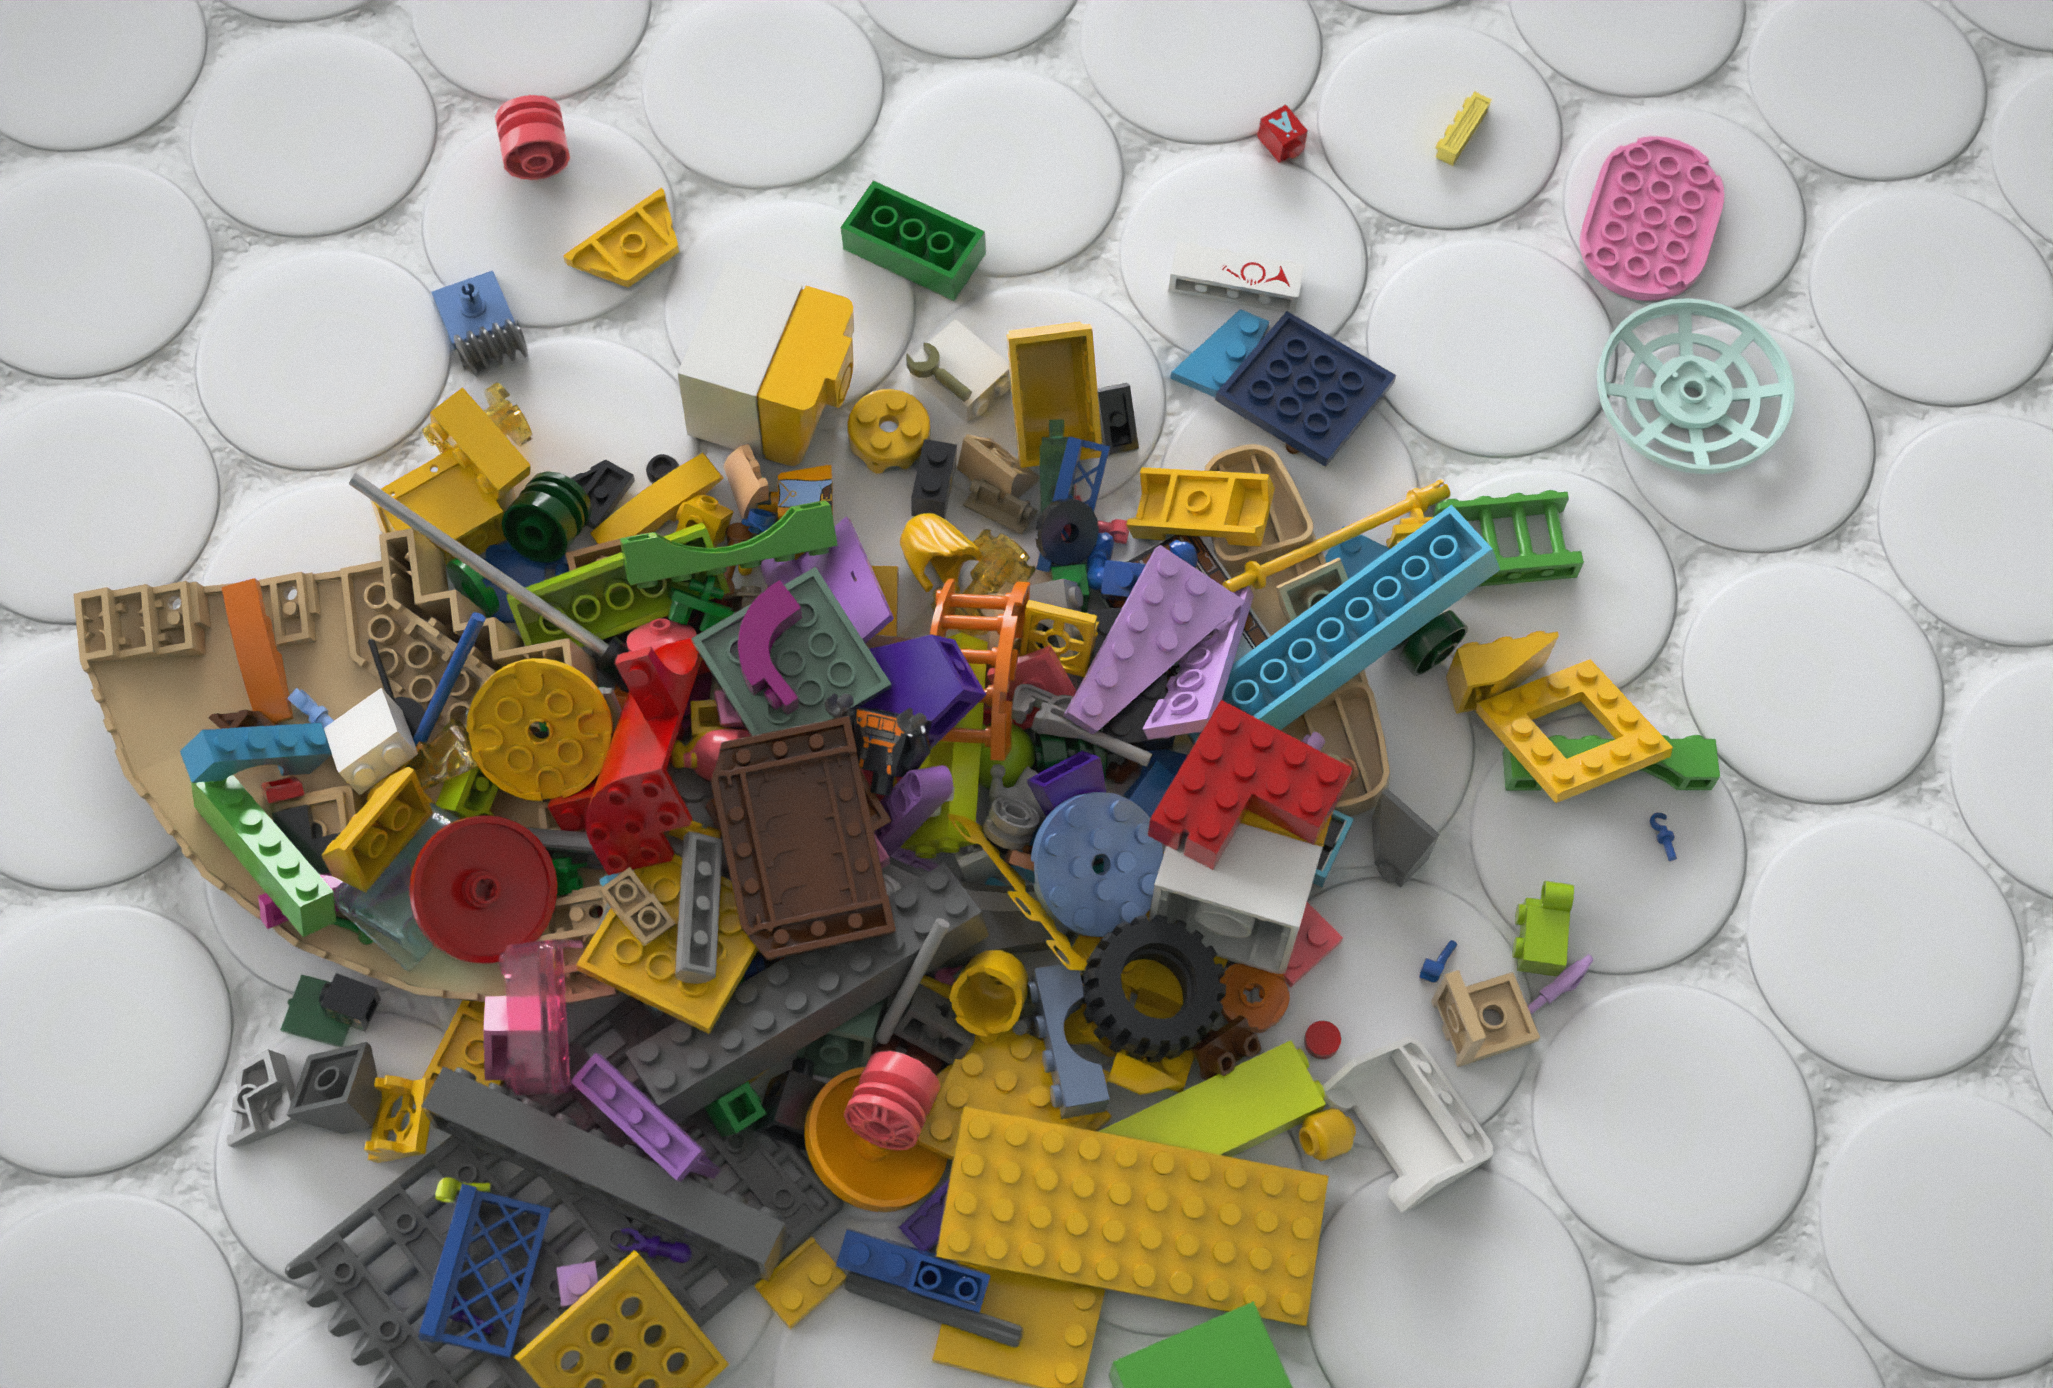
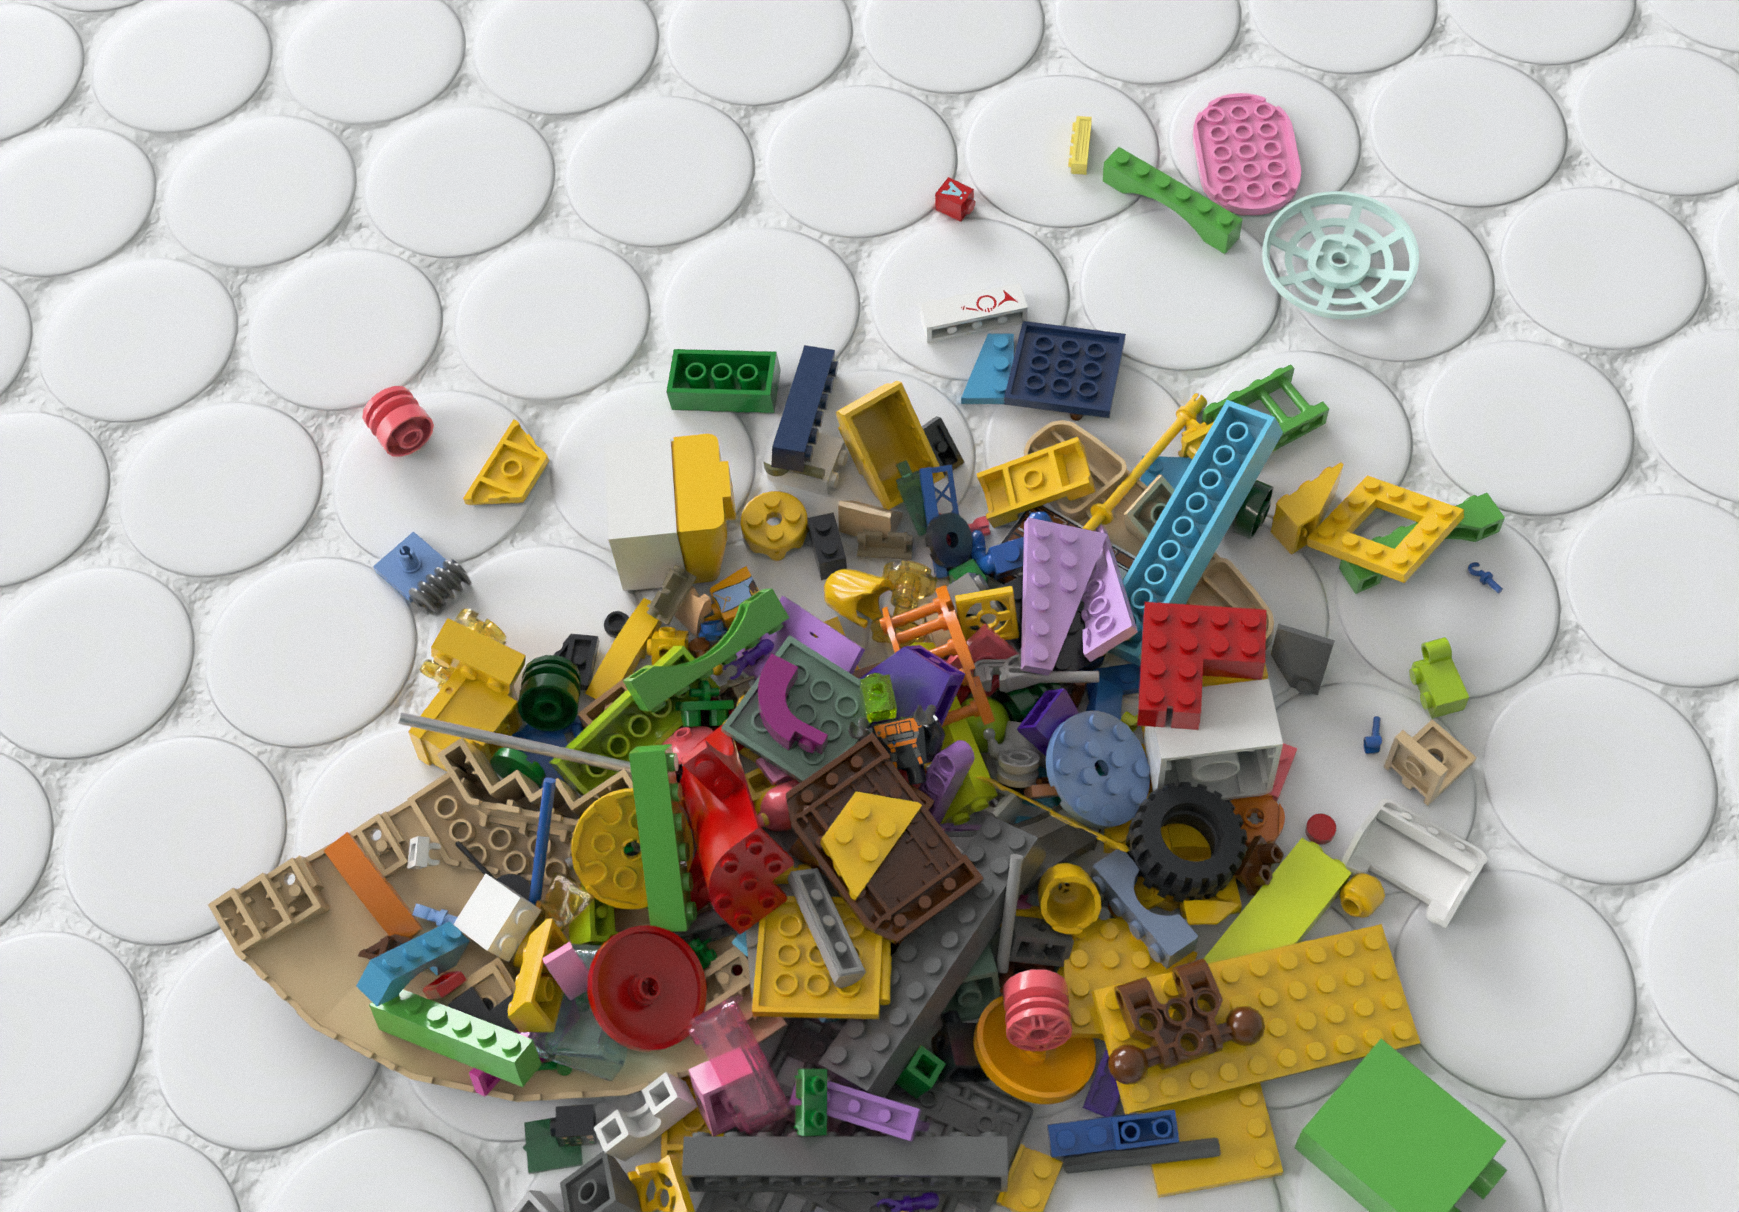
camera: 15 degrees left, 5 degrees down
(324, 634) = (419, 853): none -> white tile
(404, 832) = (568, 970): none -> bright pink slope
(451, 1021) = (628, 1132): none -> white arch
(571, 732) = (662, 838): none -> bright green brick
(593, 1091) = (812, 1114): none -> green hinge
(636, 907) = (777, 948): tan slope -> none
(736, 458) = (672, 595): none -> dark tan hinge
(741, 987) = (885, 973): none -> yellow piece
(774, 571) = (763, 648): none -> dark purple piece
(787, 827) = (865, 836): none -> yellow wing
(876, 679) = (877, 697): none -> clear neon green brick
(959, 1203) = (1194, 983): none -> reddish brown connector
(983, 310) = (804, 409): none -> dark blue brick
(1563, 278) = (1211, 221): none -> bright green arch
(1566, 981) = (1470, 712): lavender hand -> none

